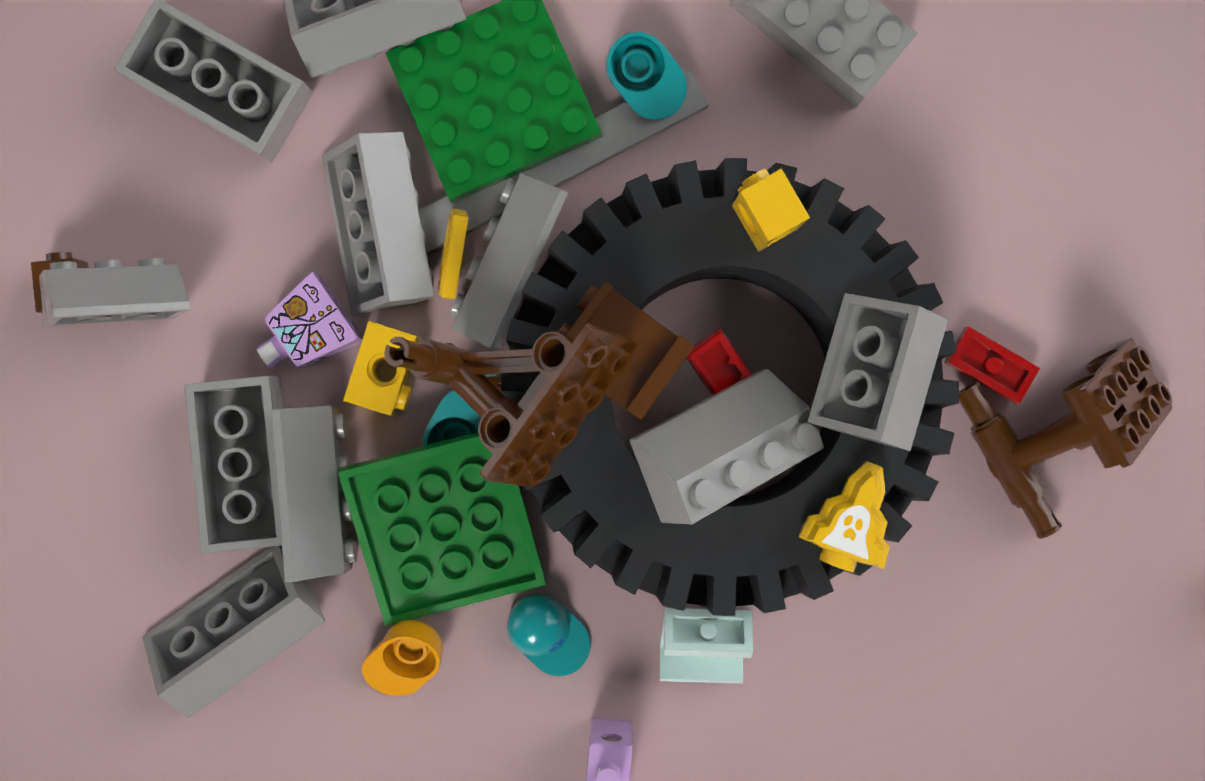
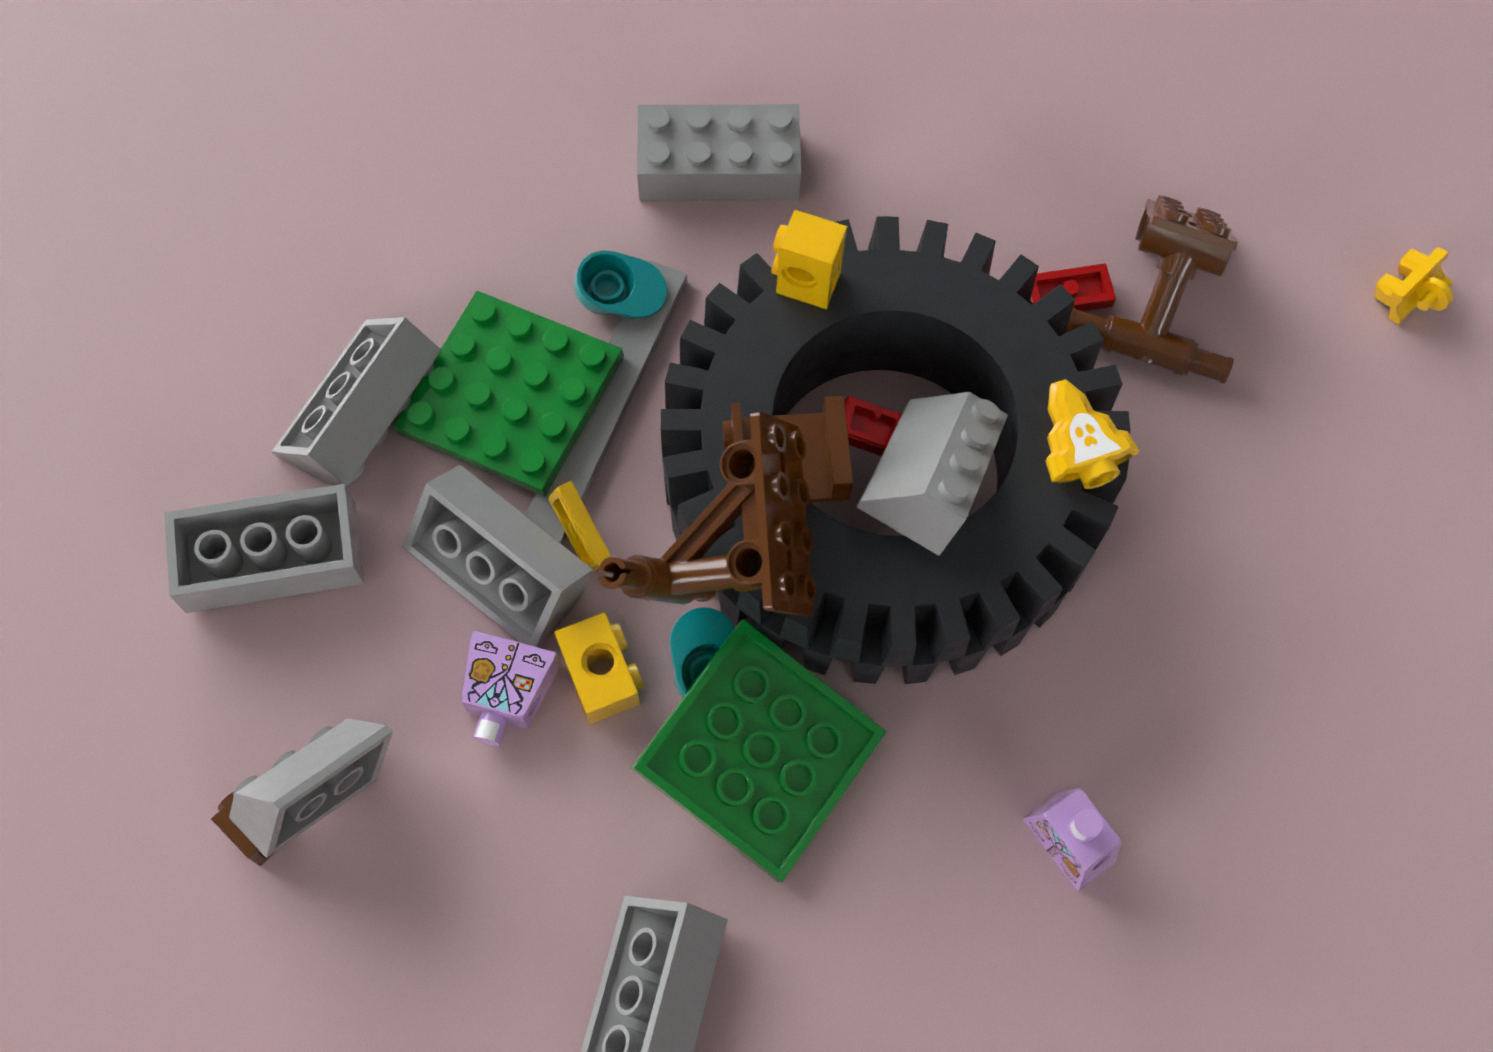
camera: 45 degrees left, 20 degrees down
(234, 462) = (539, 842): light grey brick -> none
(310, 492) = (623, 813): light grey slope -> none
(404, 658) = (823, 898): light orange cap -> none
(510, 258) = (628, 478): light grey slope -> none
(548, 634) = (925, 778): teal cap -> none
(704, 646) = (1053, 659): light aqua panel -> none
(878, 370) = (995, 315): light grey slope -> none

